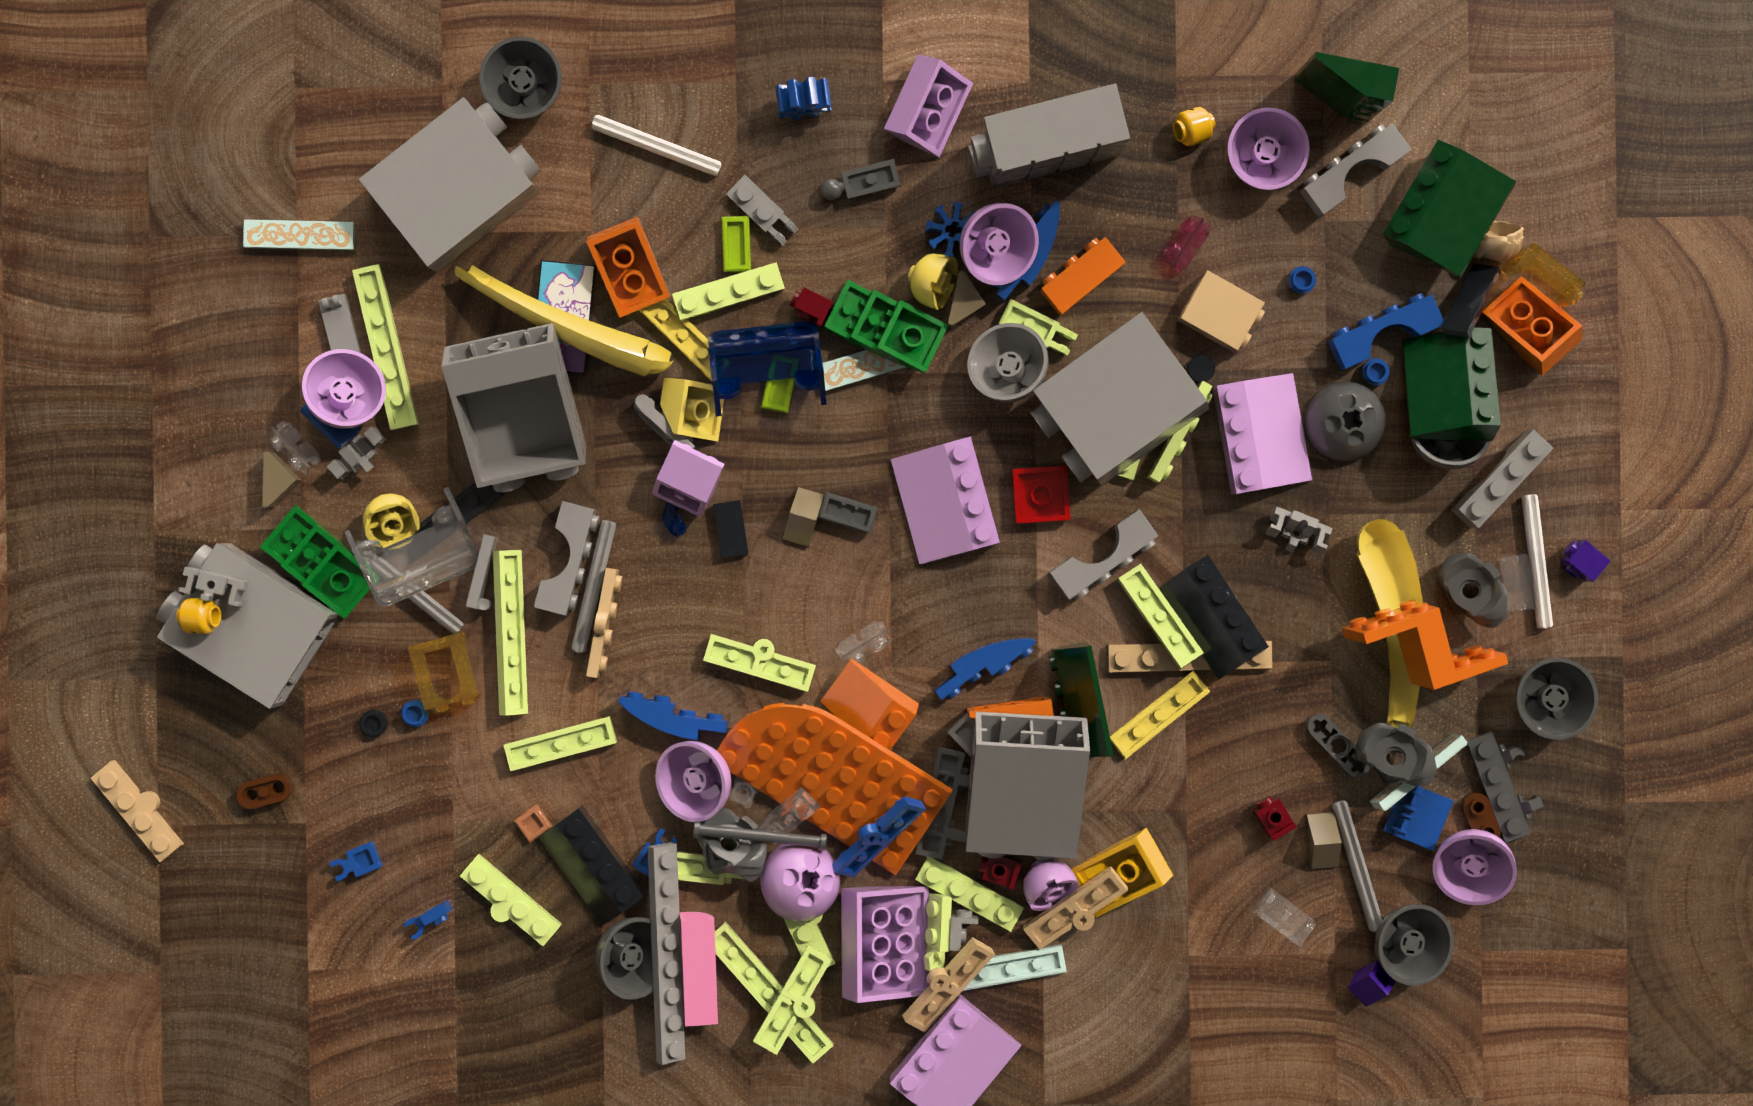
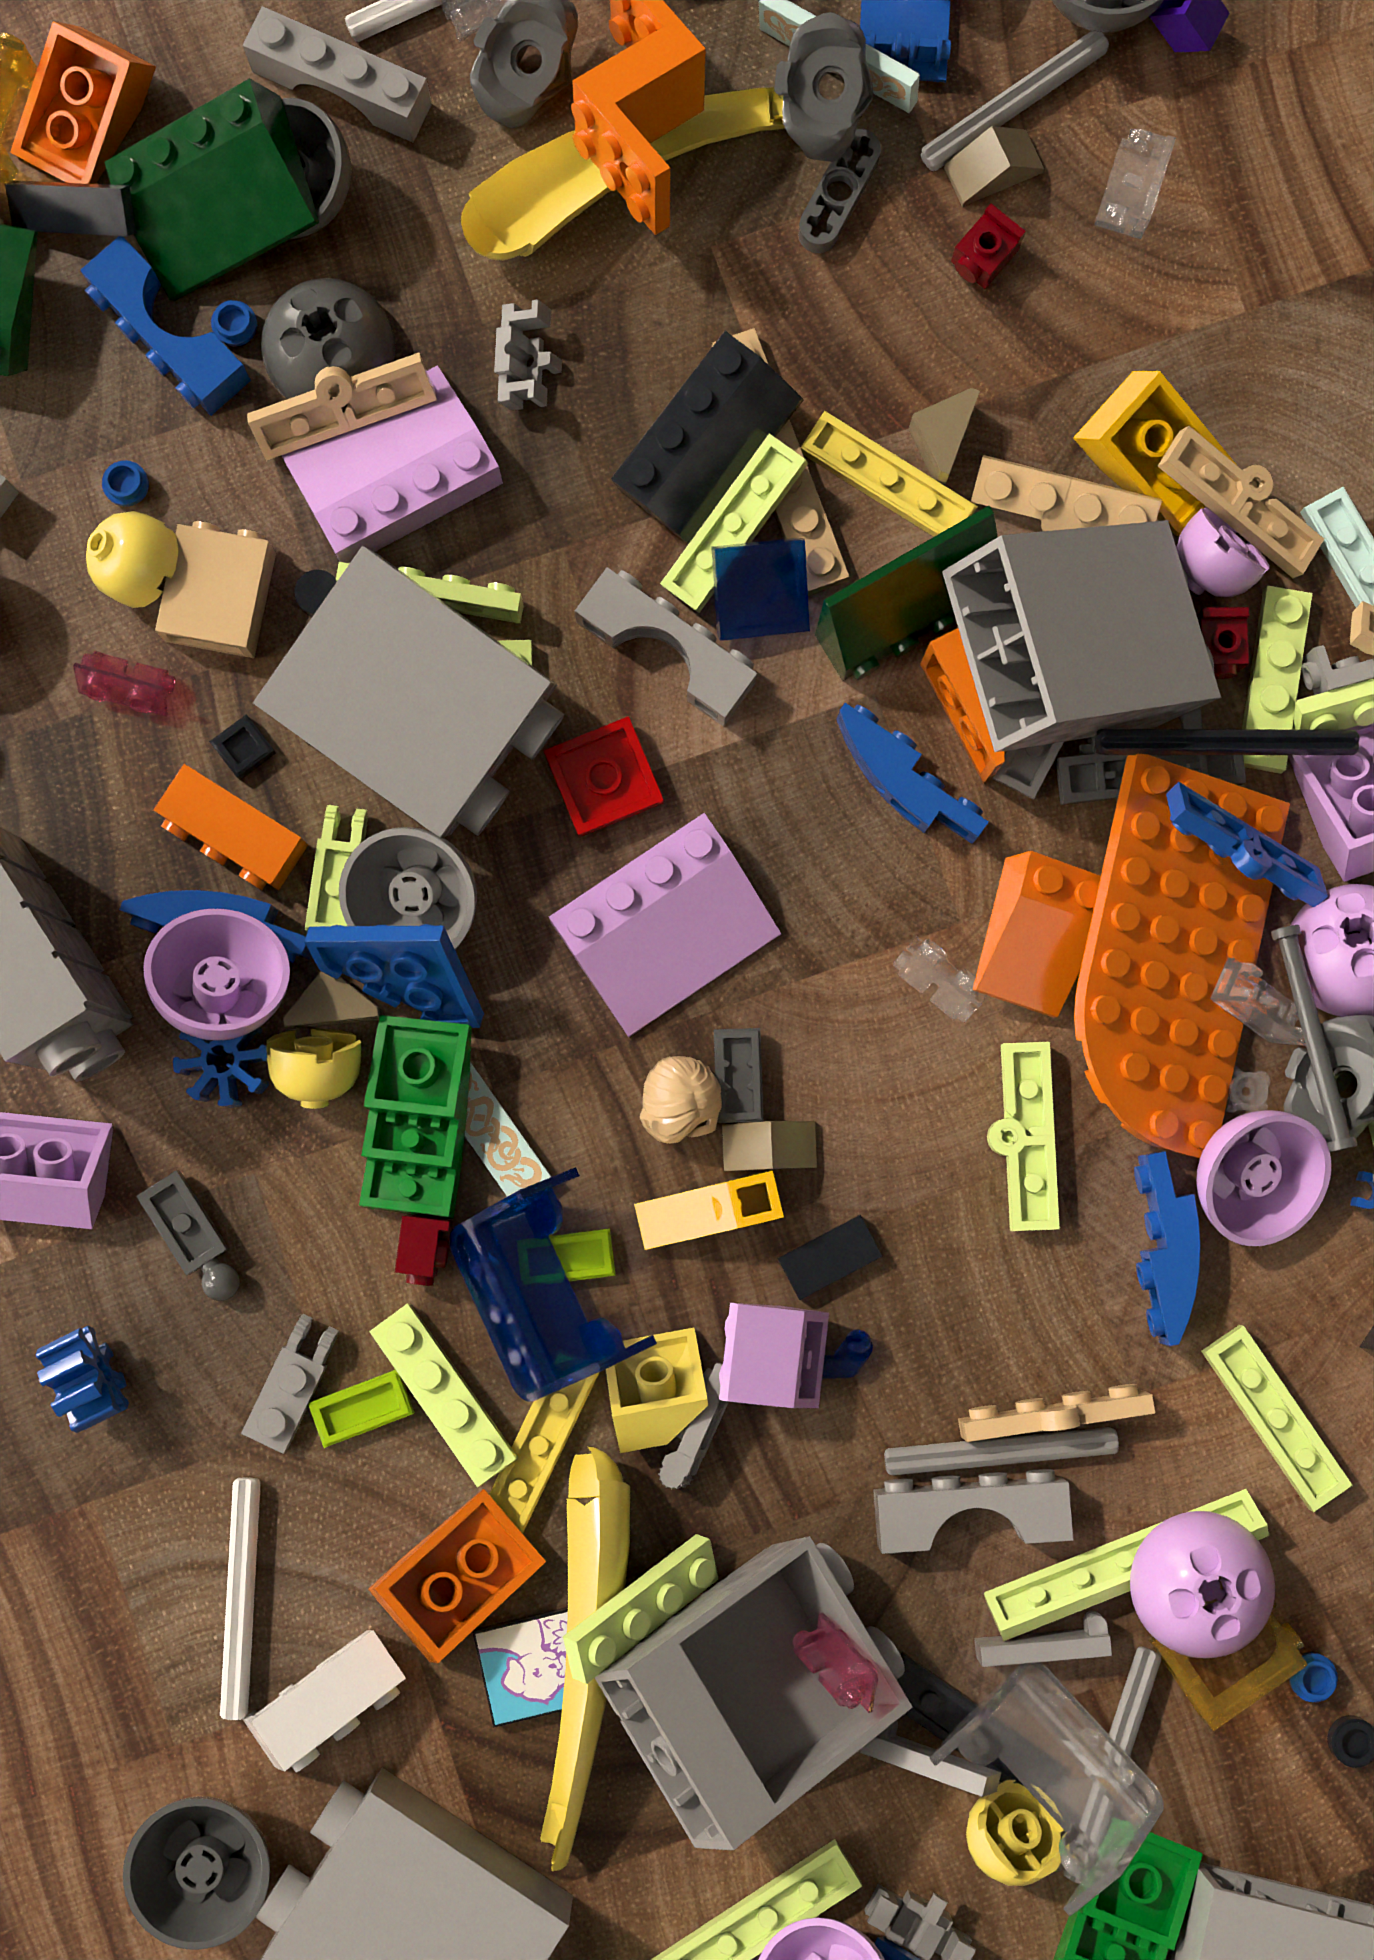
camera: 120 degrees left, 5 degrees down
(459, 468) = (915, 1758): none -> light grey hinge
(497, 657) = (1181, 1570): none -> lavender piece
(513, 456) = (849, 1677): none -> clear pink hinge
(578, 360) = (640, 1609): none -> yellowish green plate
(585, 174) = (326, 1702): none -> white wedge
(779, 470) = (709, 1210): none -> yellow slope
(846, 475) = (678, 1098): none -> tan hair
(940, 848) = (1226, 742): none -> black axle
(970, 345) = (400, 966): none -> blue plate
(1111, 807) = (1057, 498): none -> tan hinge
(1117, 618) = (760, 588): none -> clear blue tile
(1127, 297) = (242, 747): none -> black tile
(1174, 753) = (940, 431): none -> dark tan slope
(1254, 270) = (131, 557): none -> light yellow cylinder
(1303, 417) = (341, 405): none -> tan hinge

